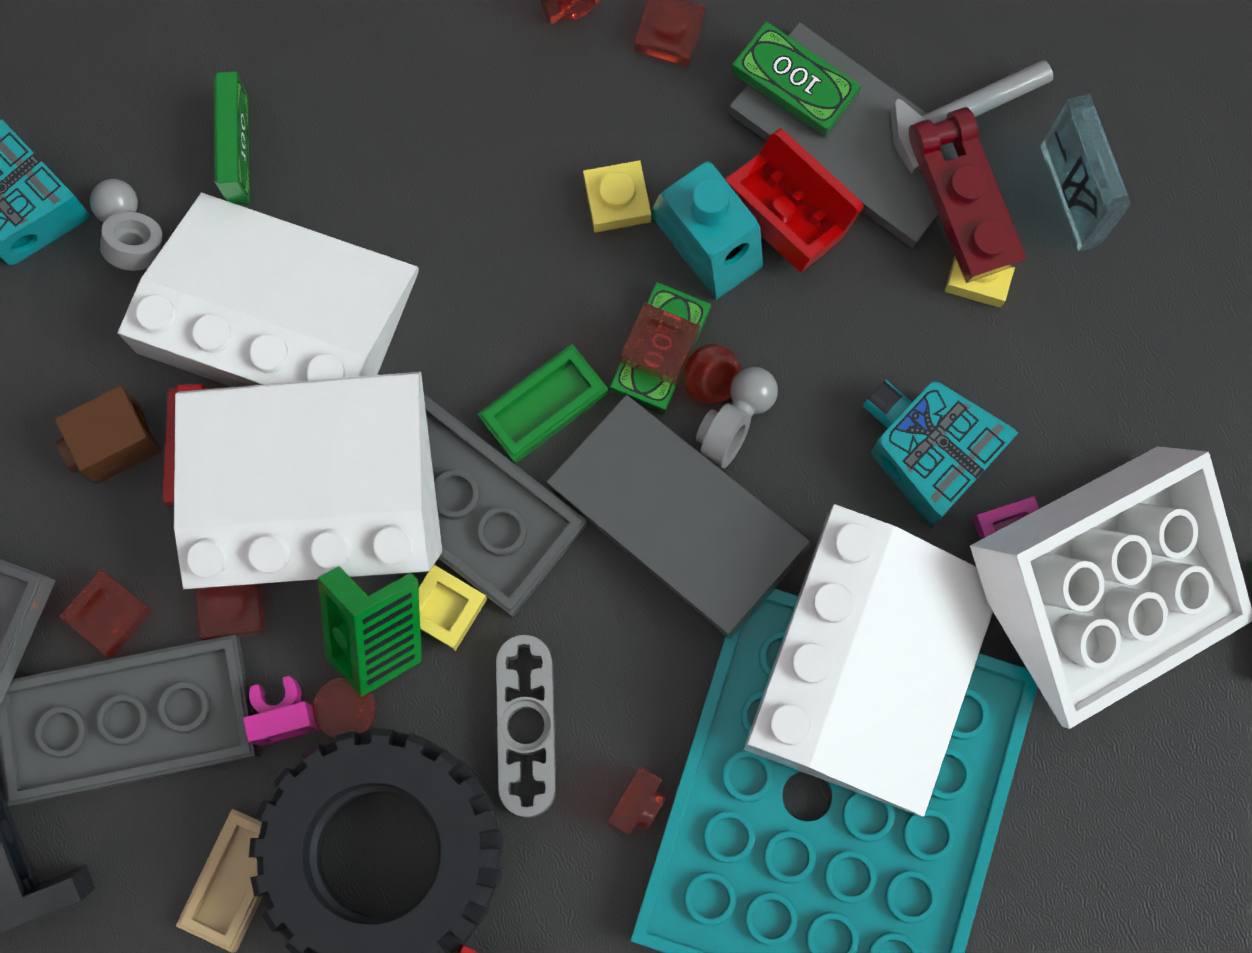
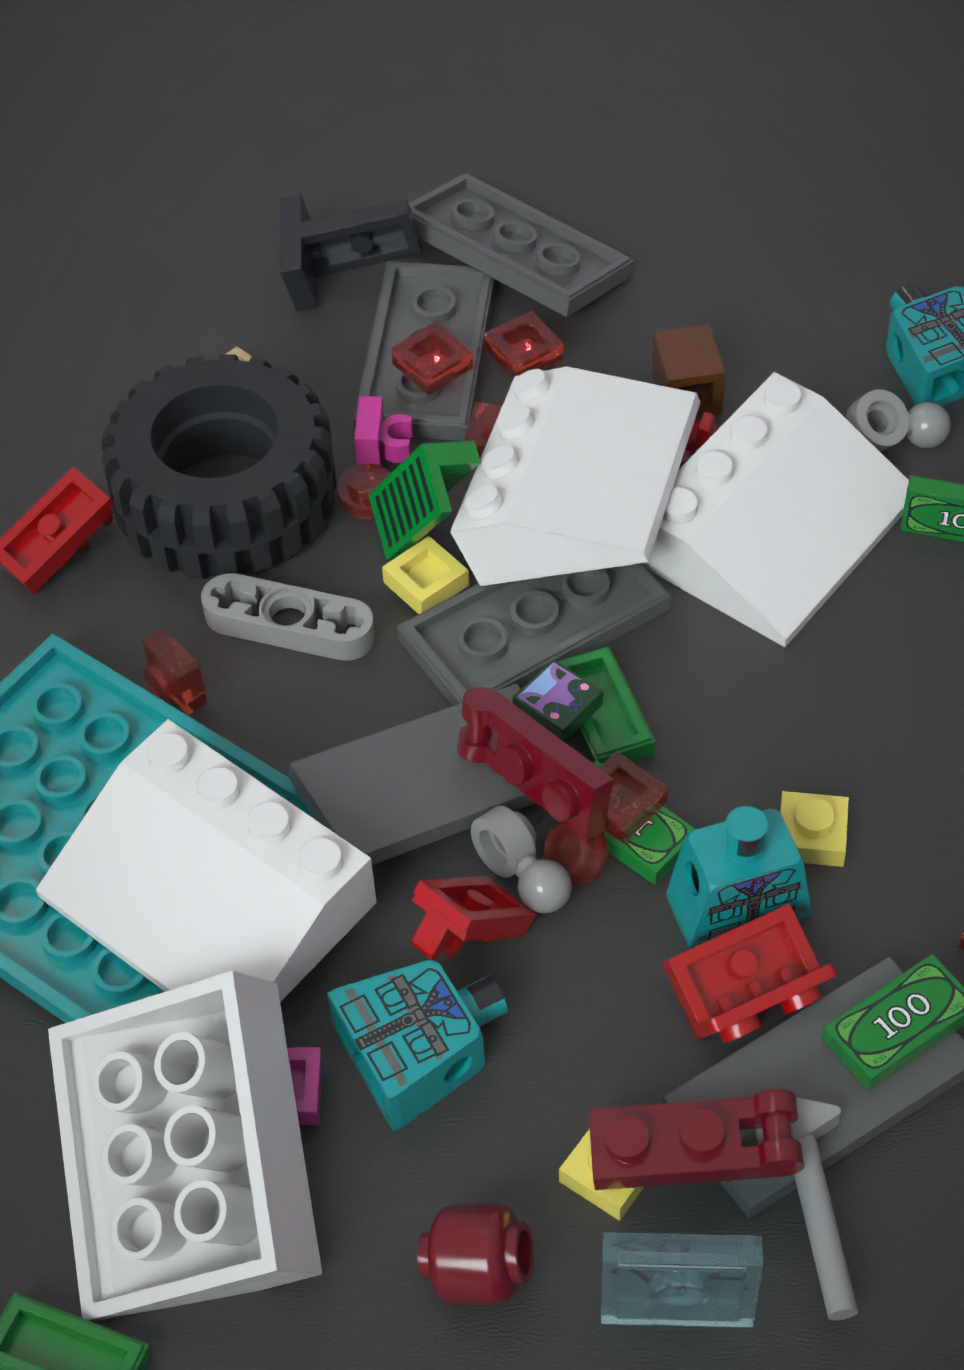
camera: 110 degrees right, 25 degrees down
(165, 691) = (432, 358): none -> clear red plate
(565, 432) = (559, 699): none -> dark green tile
(664, 416) = (534, 761): none -> dark red plate
(818, 429) = (466, 911): none -> red plate
(1102, 336) = (476, 1254): none -> dark red head

